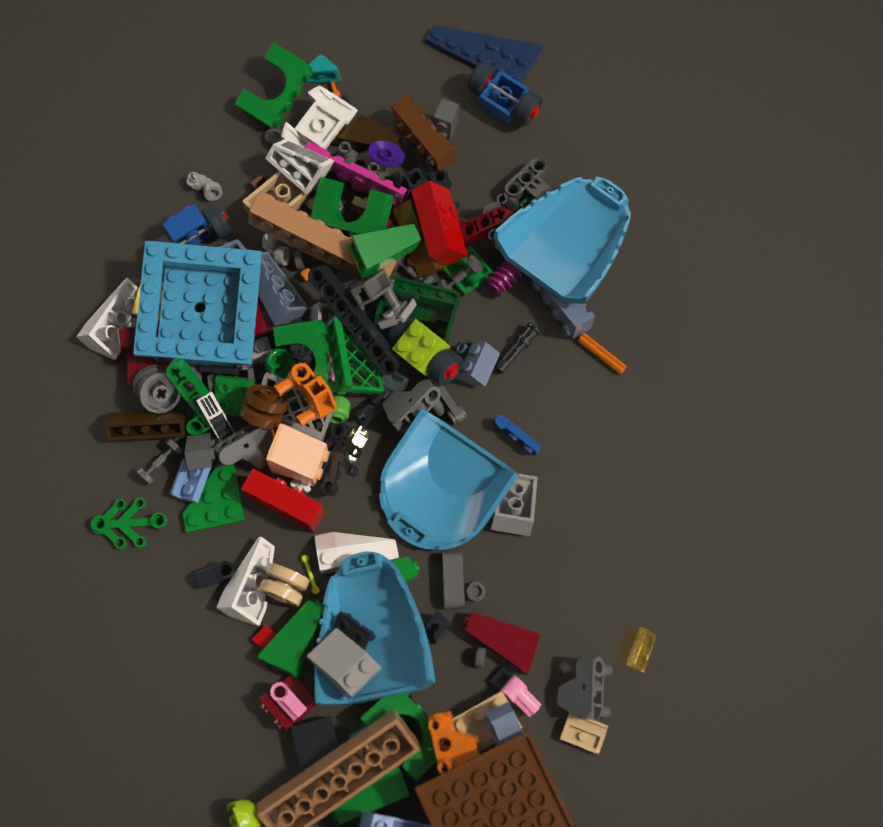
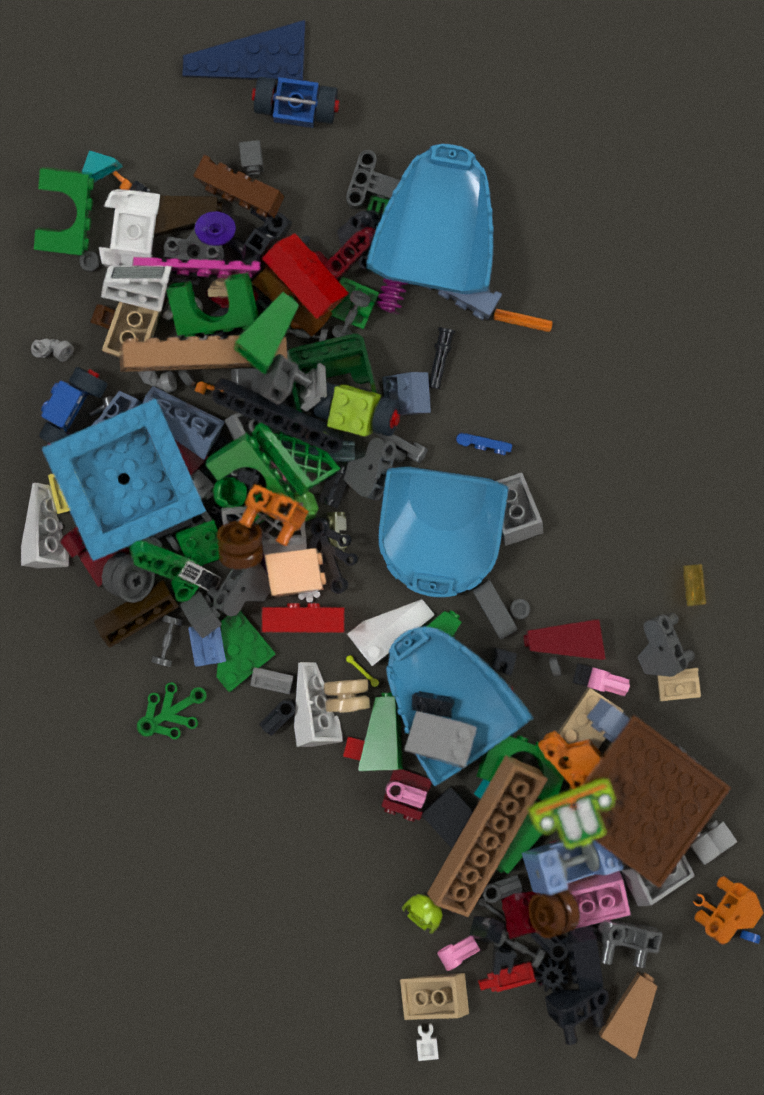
camera: 25 degrees left, 15 degrees up
(227, 540) = (271, 680): none -> light grey plate
(427, 791) = (574, 813): none -> brick

